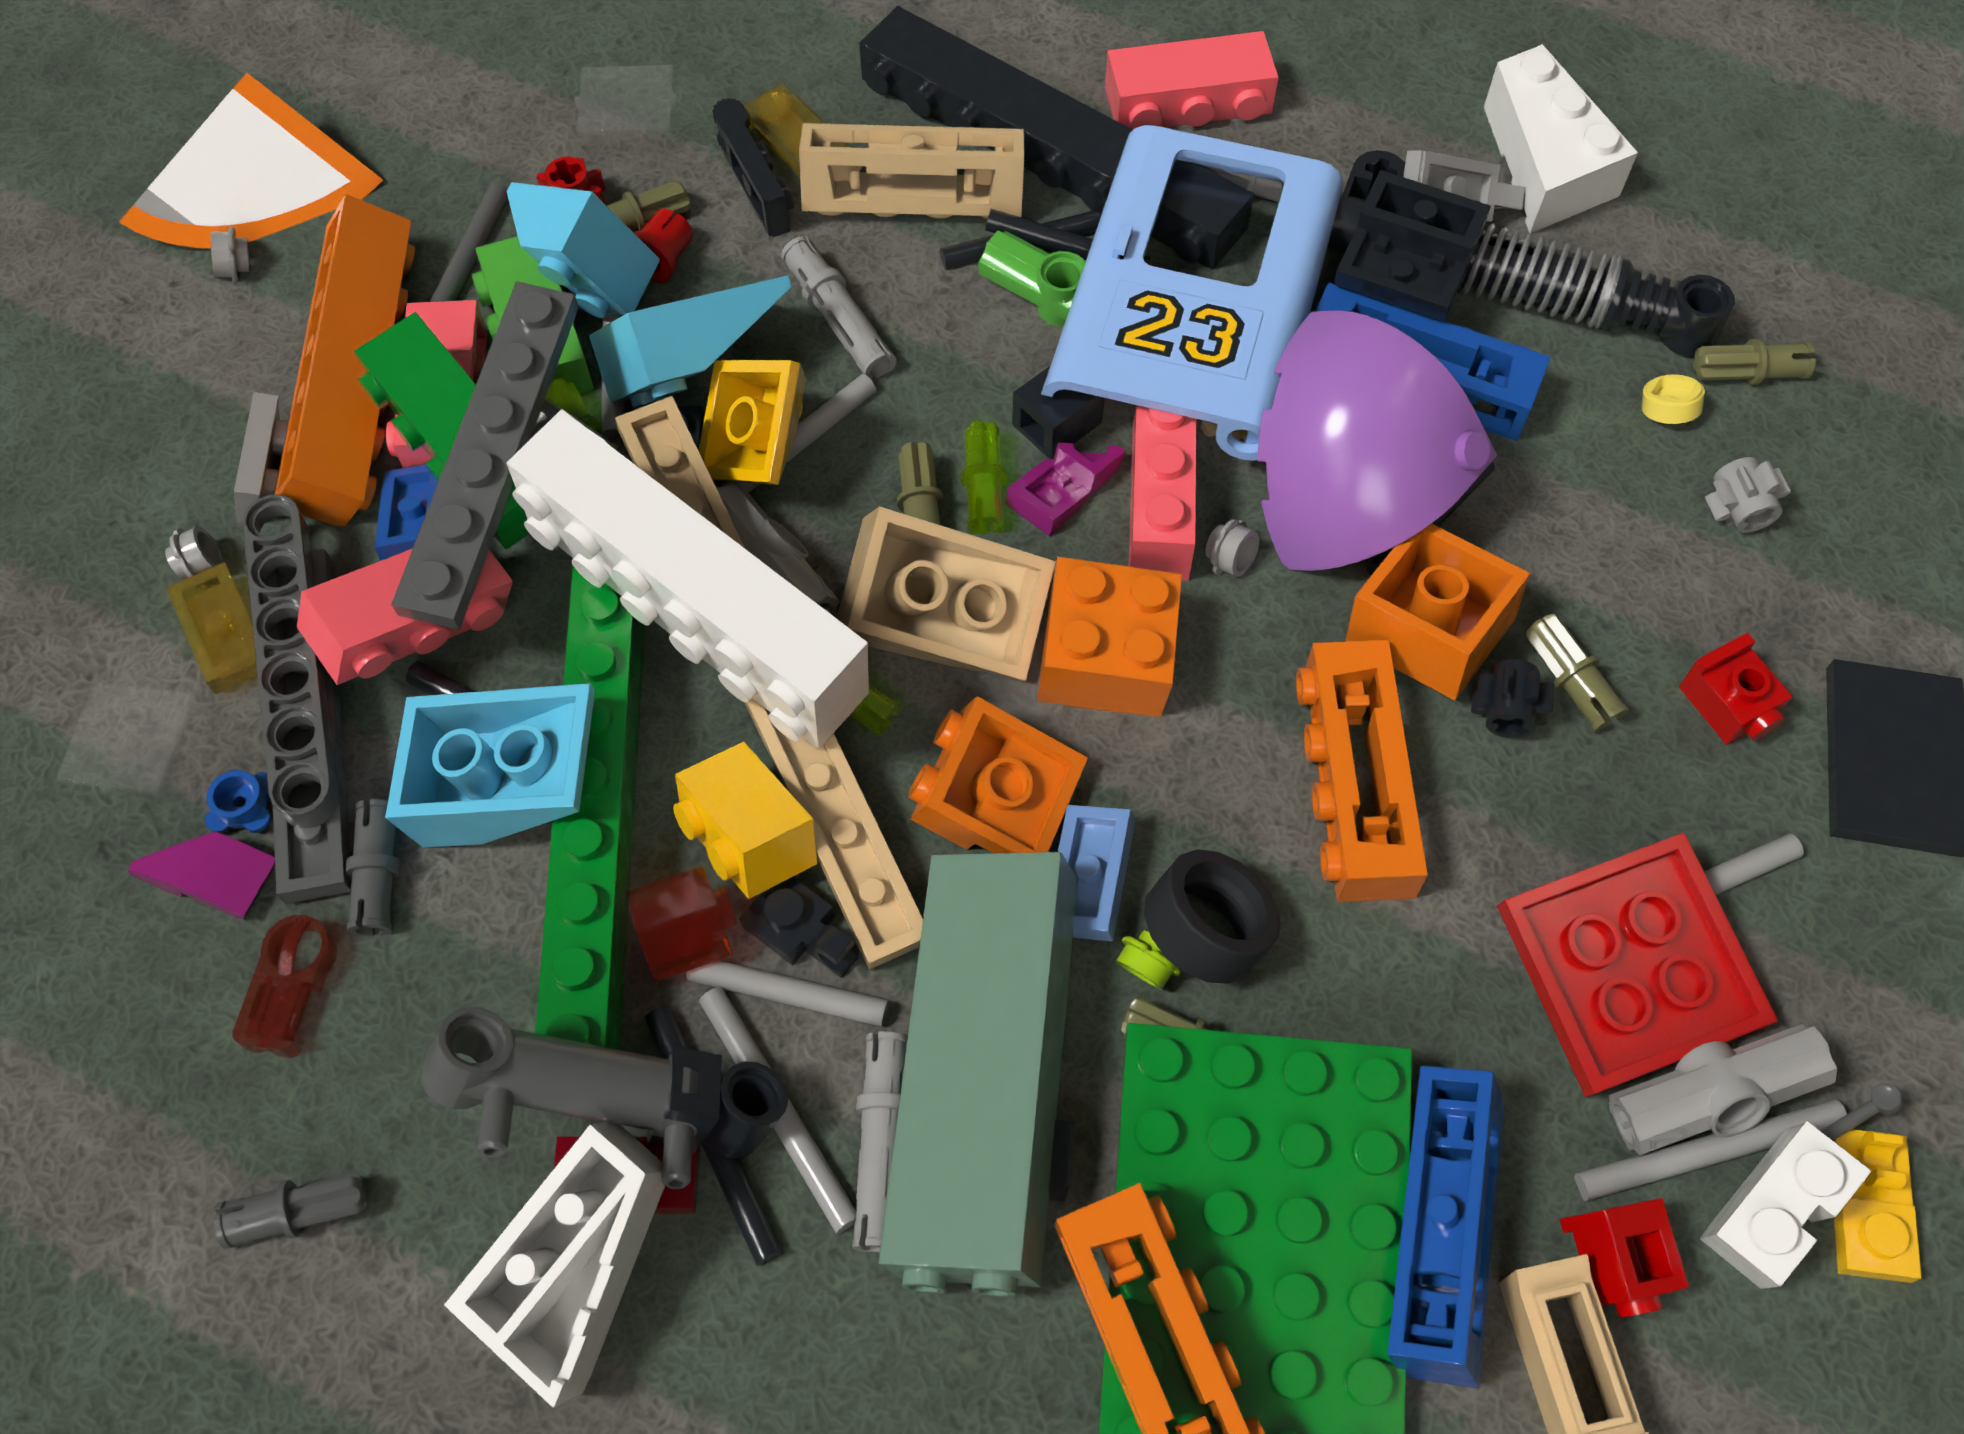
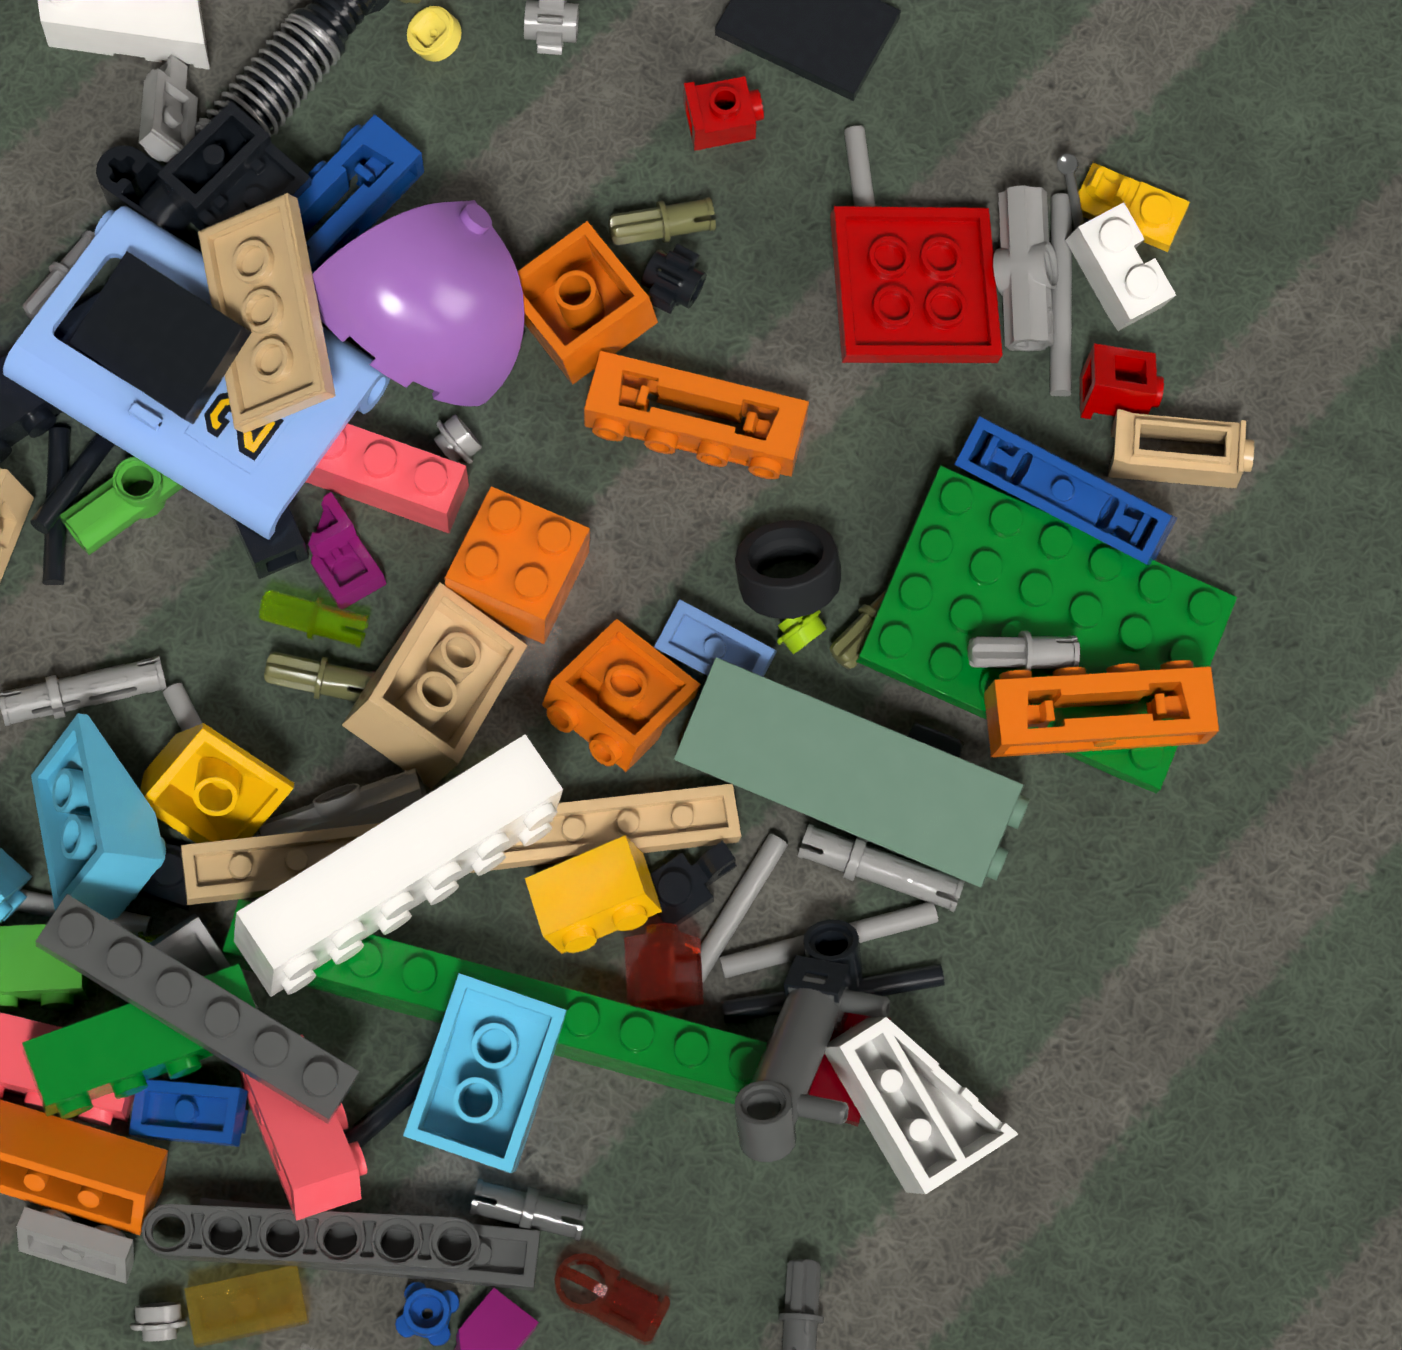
camera: 75 degrees left, 10 degrees up
(1202, 1223) = (1024, 652): none -> light grey axle
(1208, 226) = (160, 337): none -> black tile
(1272, 293) = (265, 282): none -> tan tile

